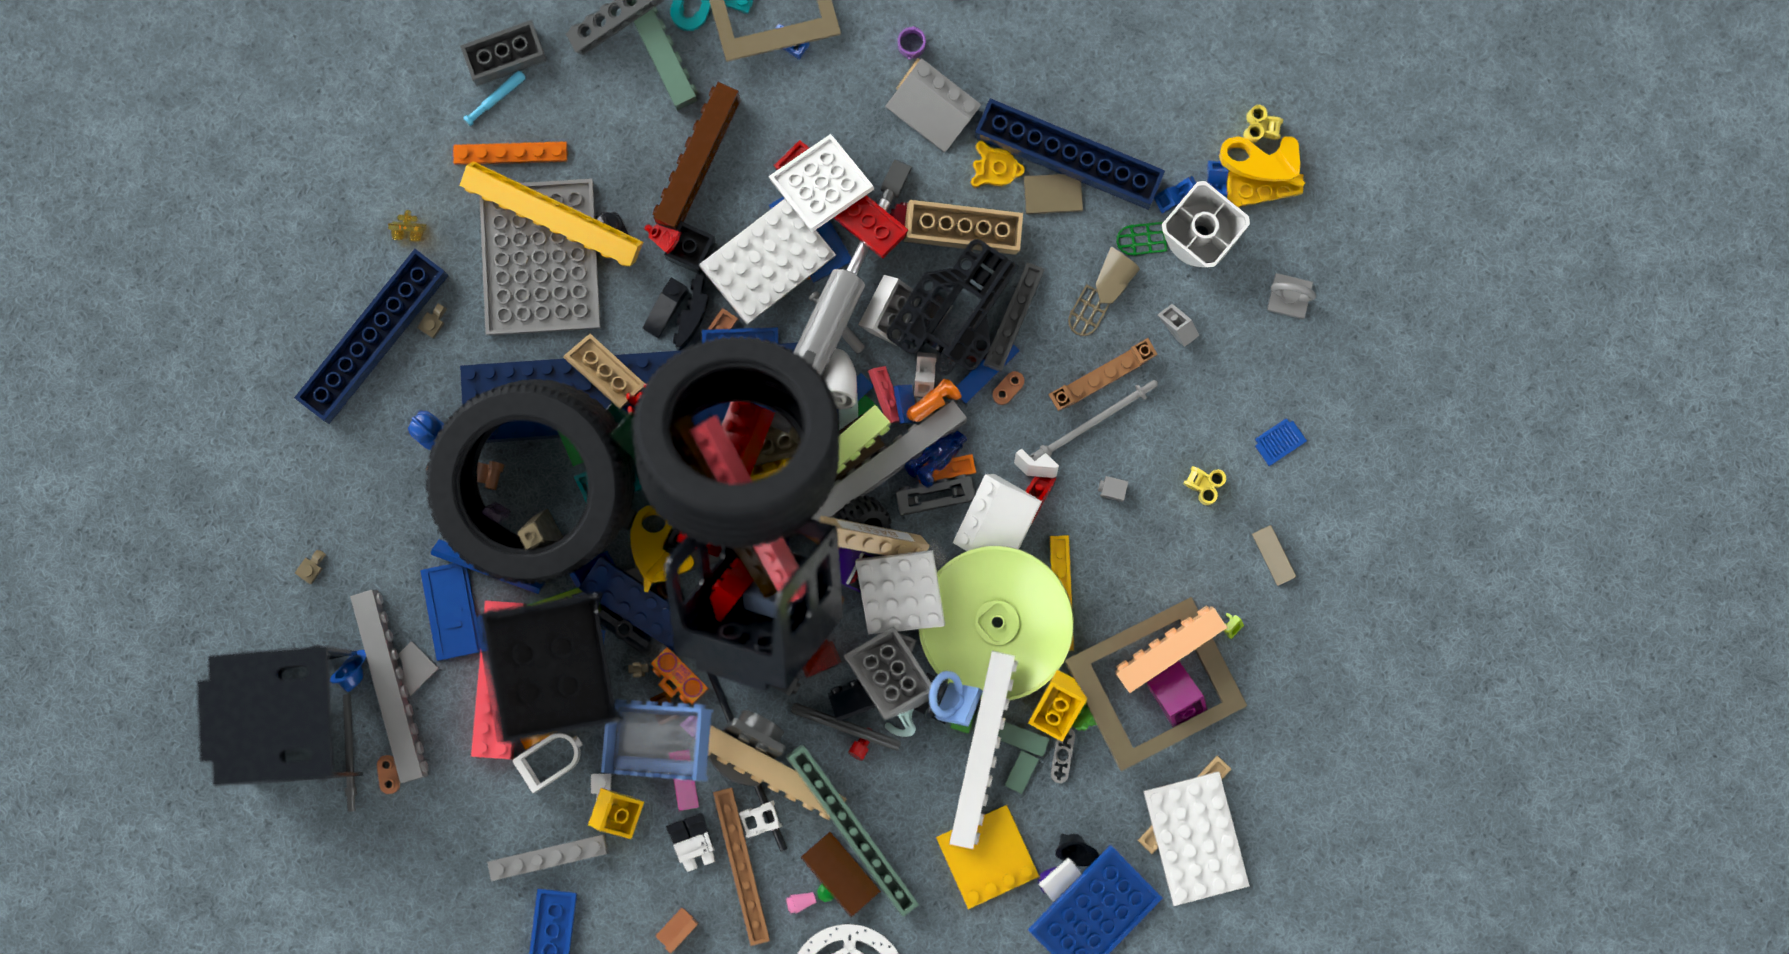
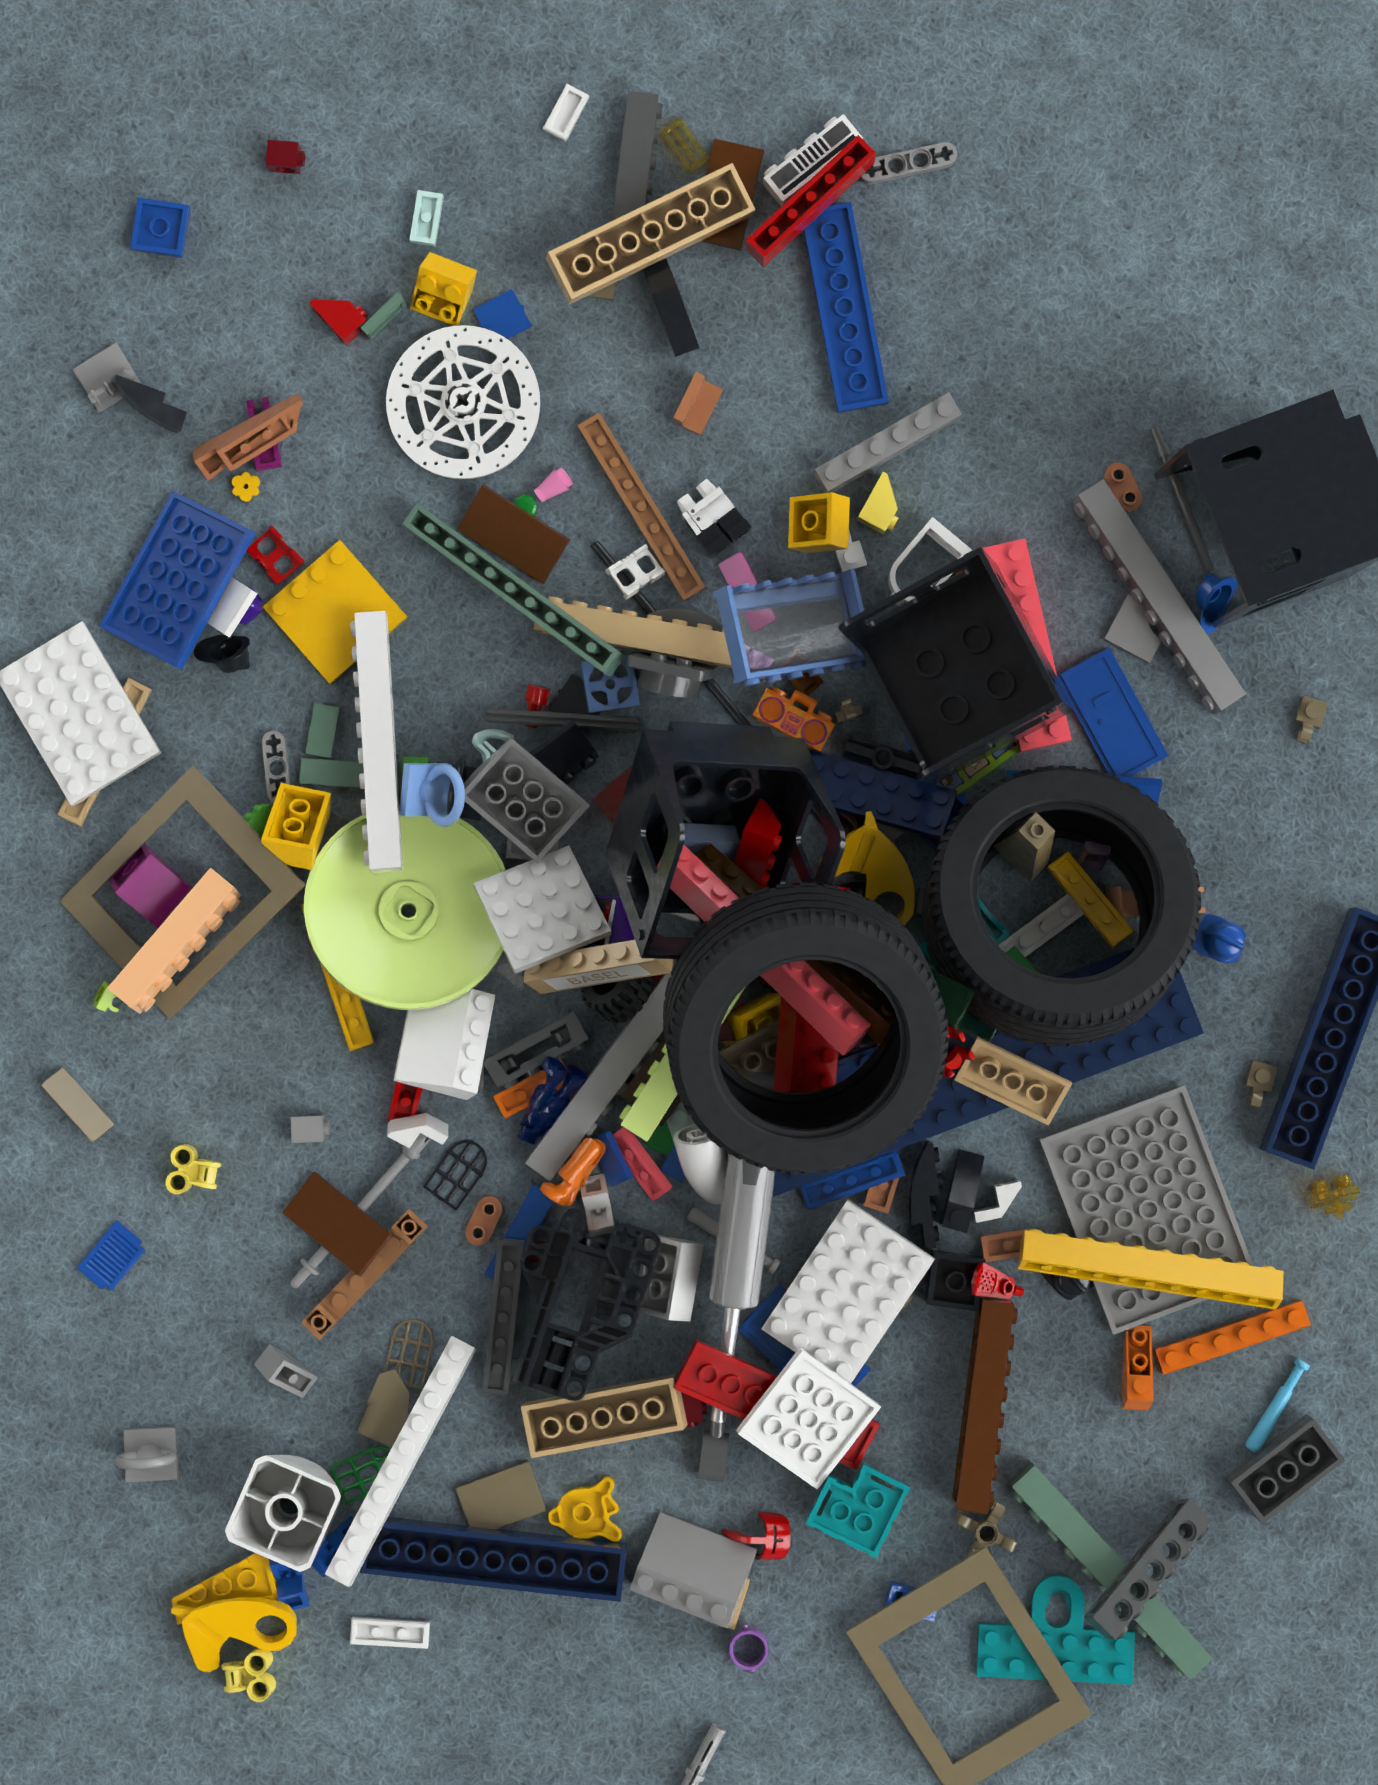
camera: 160 degrees right, 5 degrees up
(509, 482) = (1090, 899): none -> yellow tile
(544, 476) = (1043, 926): none -> white plate
(568, 812) = (880, 507): none -> light yellow slope
(582, 150) = (1137, 1369): none -> orange slope
(636, 296) = (1004, 1196): none -> white slope
(649, 262) = (1001, 1245): none -> nougat plate
(717, 66) = (991, 1520): none -> dark tan pin
(805, 111) = (859, 1511): none -> teal piece
(820, 730) = (611, 694): none -> medium blue piece
(829, 739) = (573, 699): none -> black piece
(863, 113) = (782, 1531): none -> red helmet
(1014, 914) = (269, 561): none -> red piece
(1019, 418) = (447, 1176): none -> black window
(1112, 415) = (337, 1223): none -> reddish brown tile
(1114, 237) = (400, 1462): none -> white brick
(1157, 126) = (389, 1632): none -> white tile

